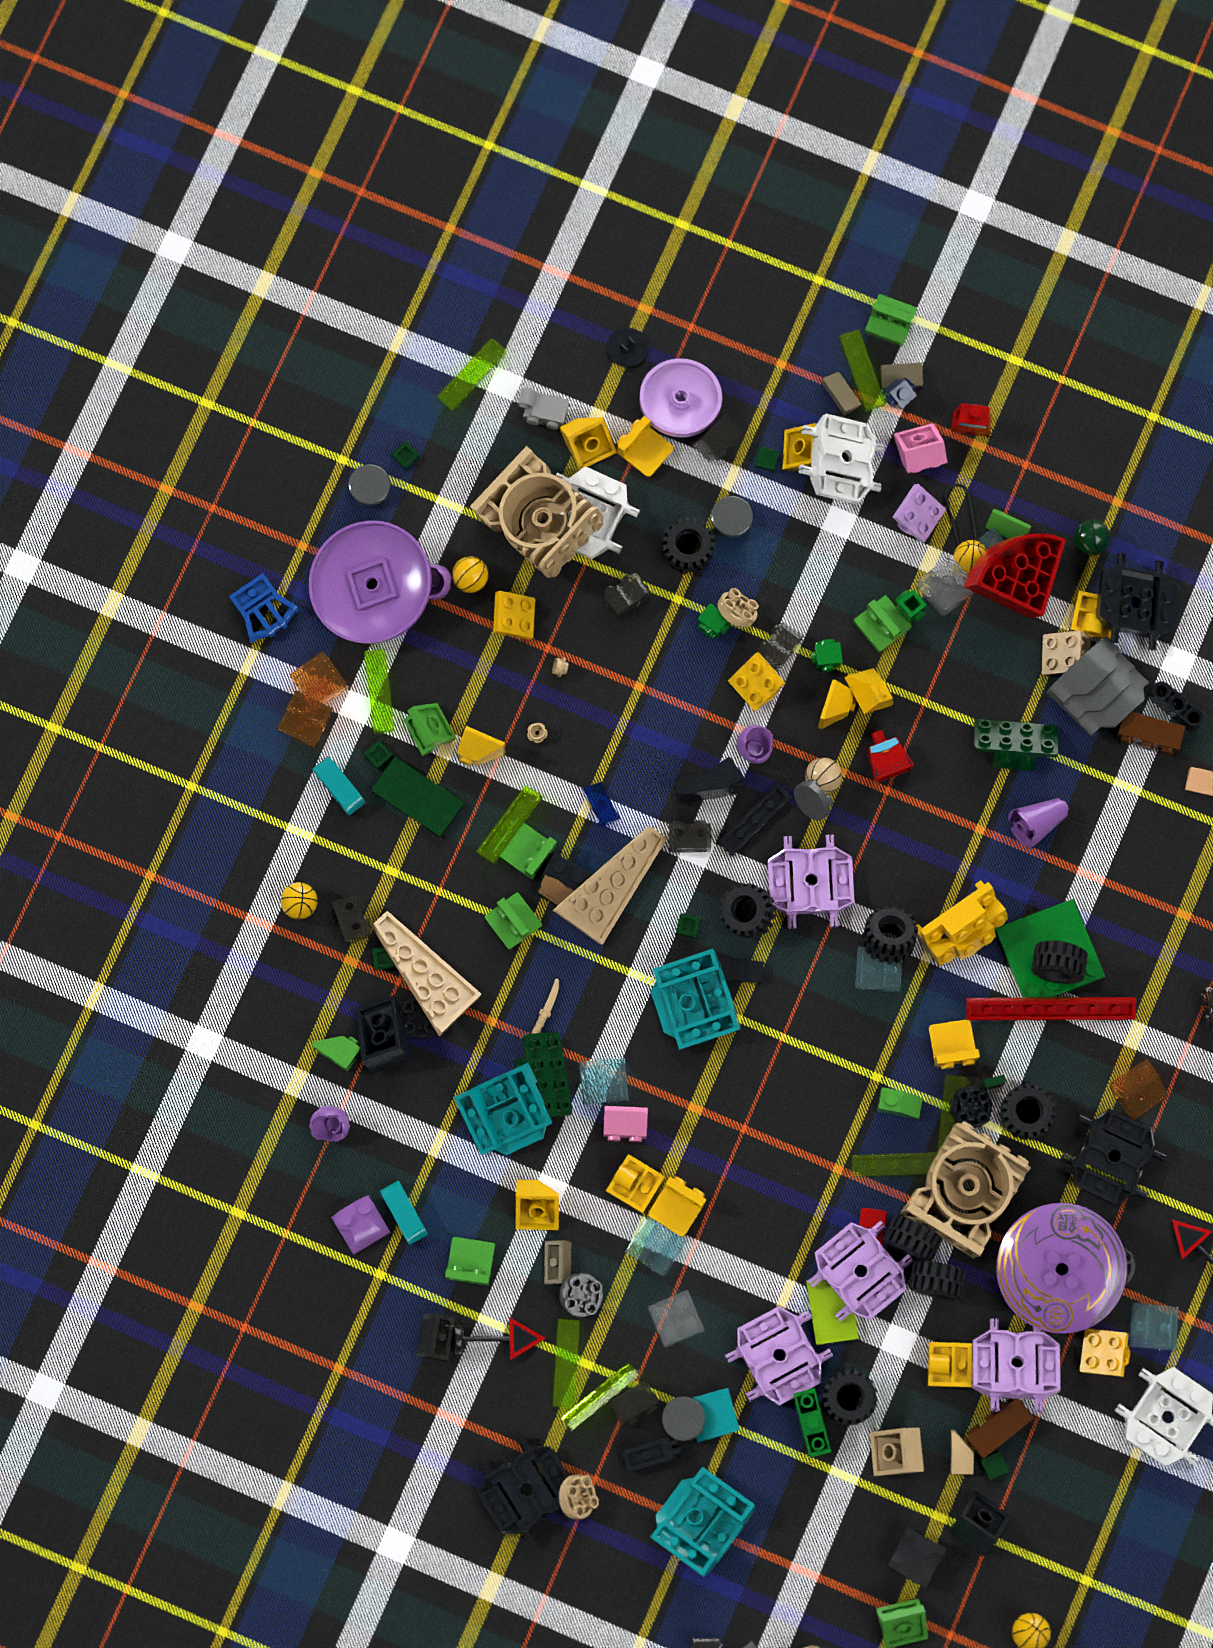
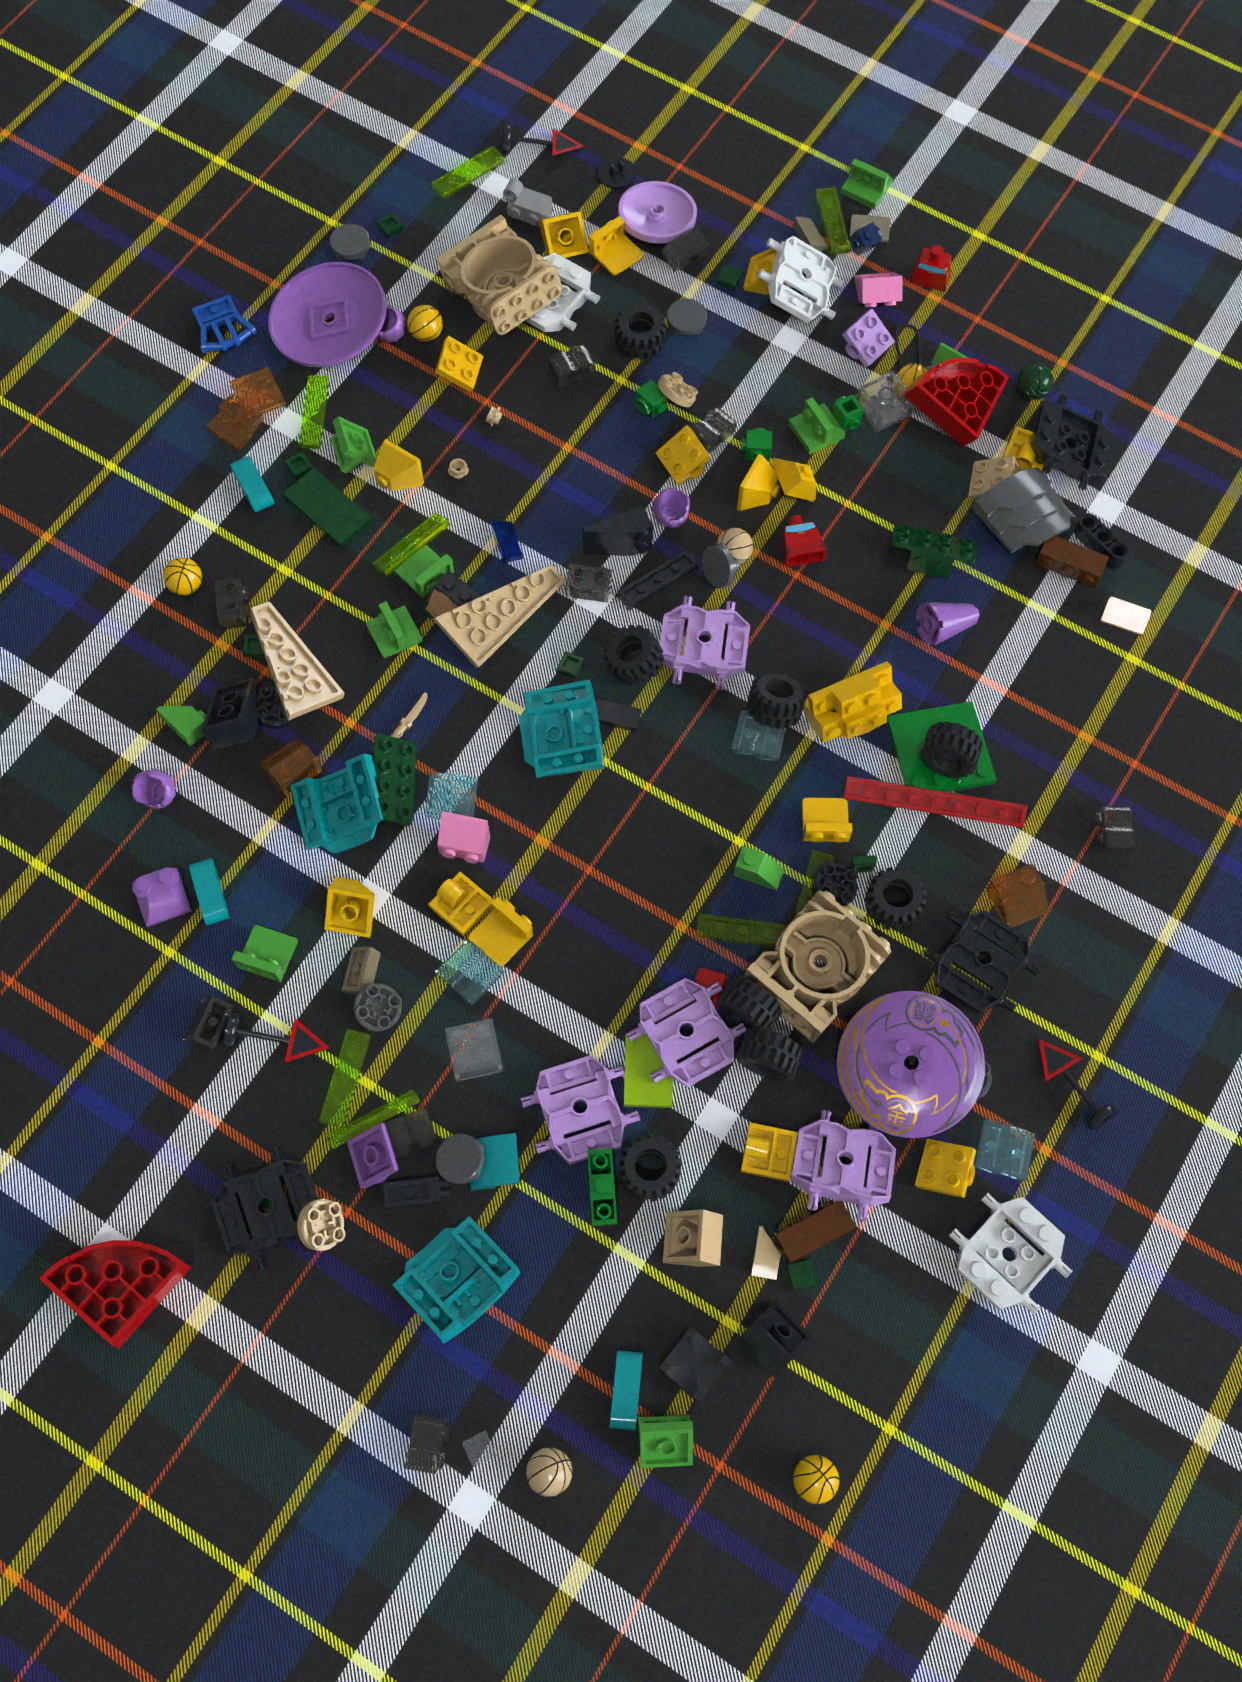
camera: 10 degrees right, 10 degrees down
(415, 1577) = (115, 1284): none -> red brick
(447, 1075) = (290, 765): none -> clear orange slope
(563, 323) = (560, 143): none -> black piece
(609, 1430) = (372, 1156): none -> medium lavender slope
(862, 1588) = (626, 1390): none -> teal beam

